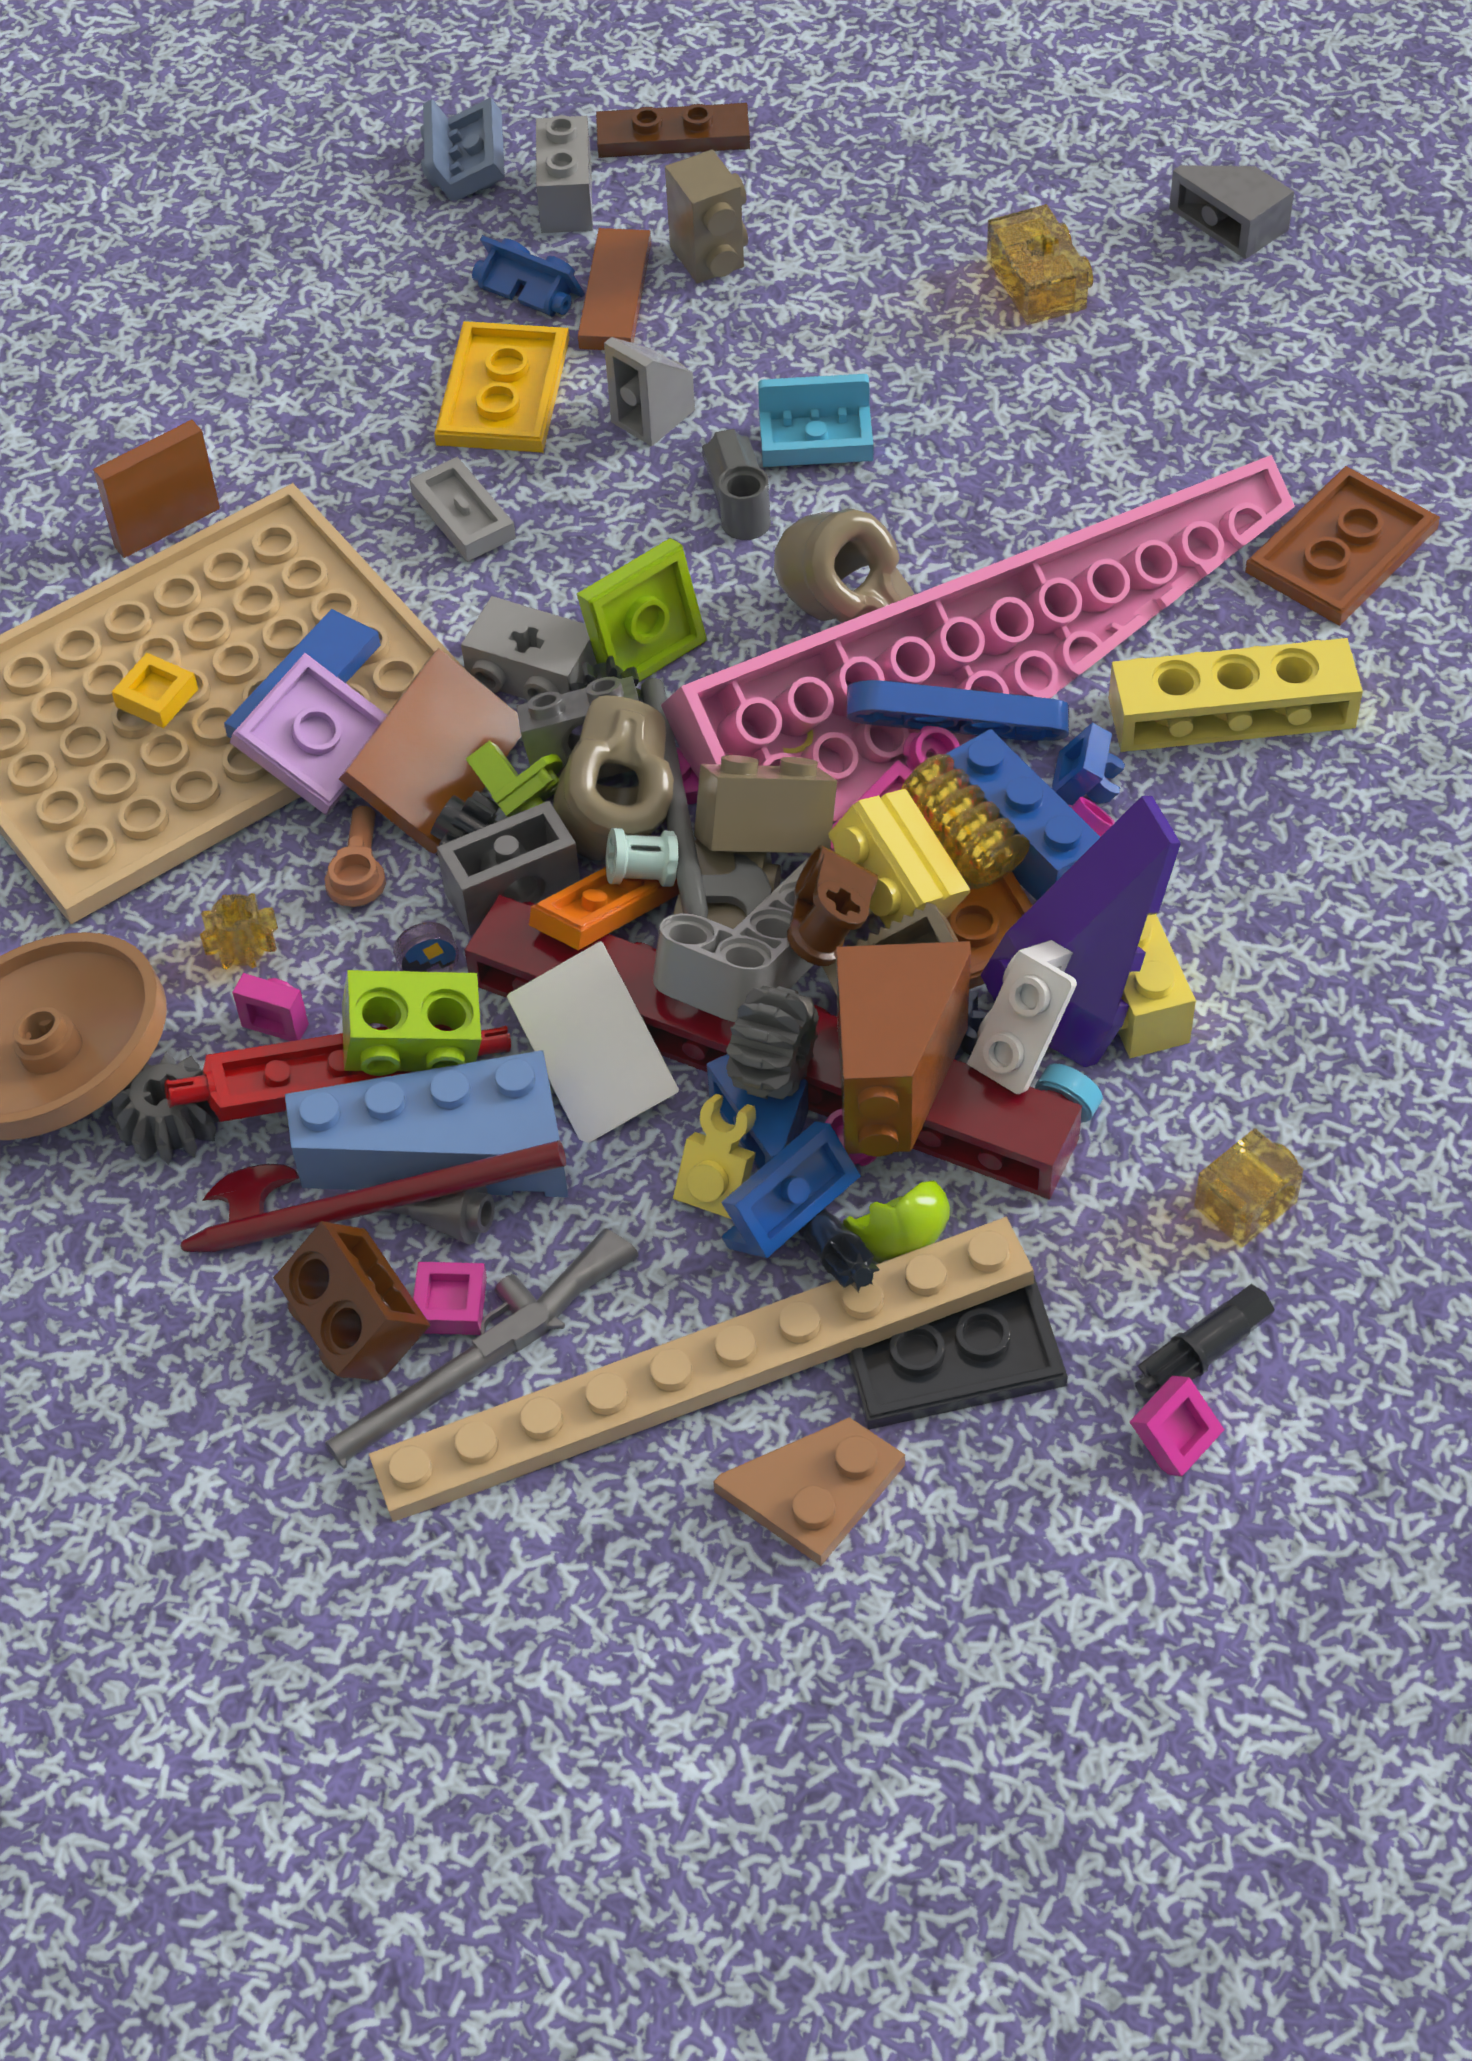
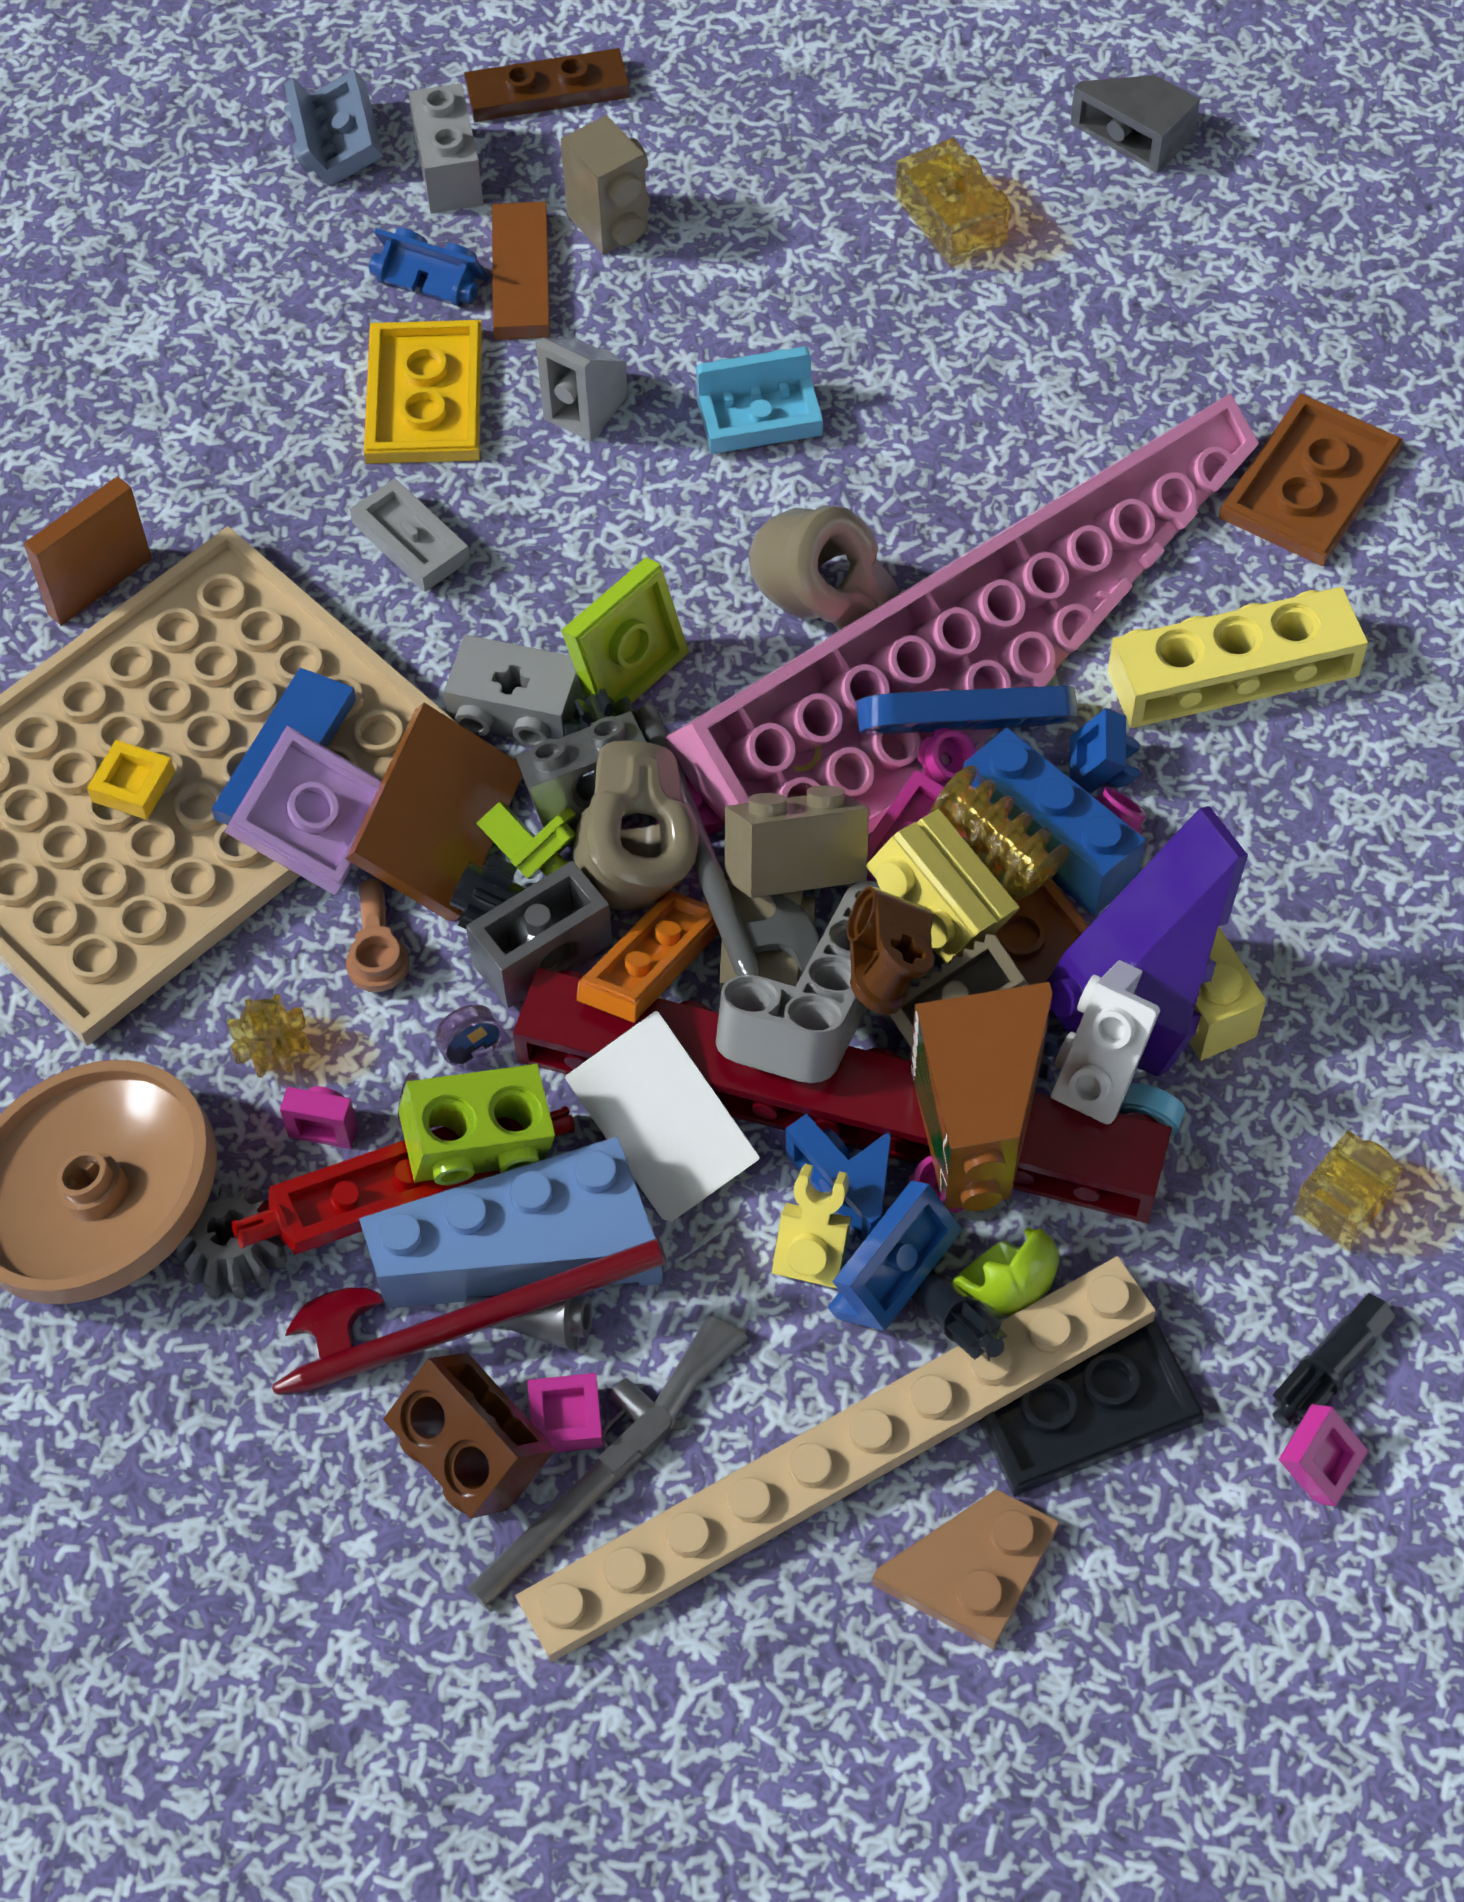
camera: 10 degrees left, 5 degrees up
(641, 857) = (678, 911): light aqua bush -> none
(738, 485) = (691, 478): dark grey piece -> none
(772, 1042) = (856, 1104): dark grey gear -> none

